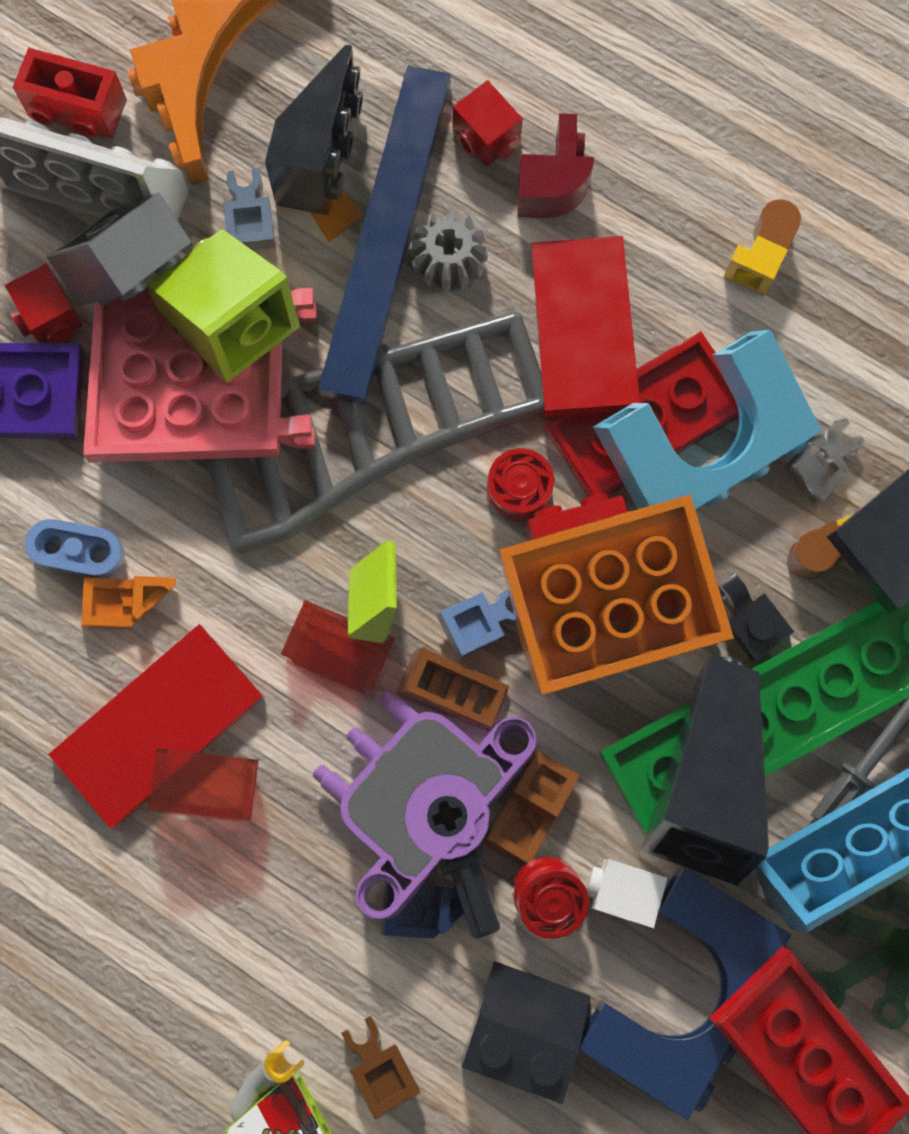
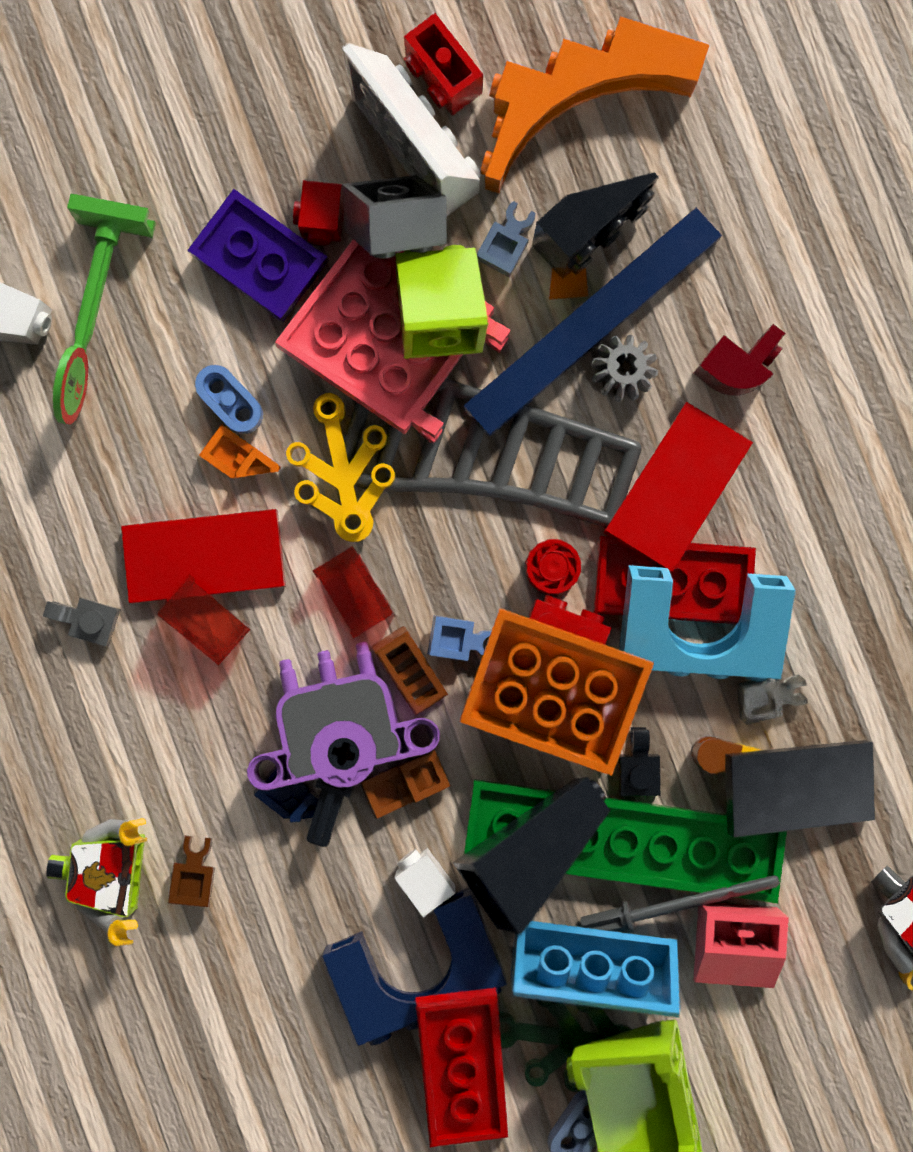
camera: 40 degrees right, 10 degrees up
(79, 878) = (88, 621): none -> dark grey plate
(244, 541) = (343, 475): none -> yellow plant
(373, 594) = (399, 574): lime slope -> none
(487, 124) = (718, 293): red brick -> none
(526, 1032) = (299, 919): black slope -> none
(549, 896) = (373, 847): red wheel -> none
(772, 237) = (857, 518): leg -> none

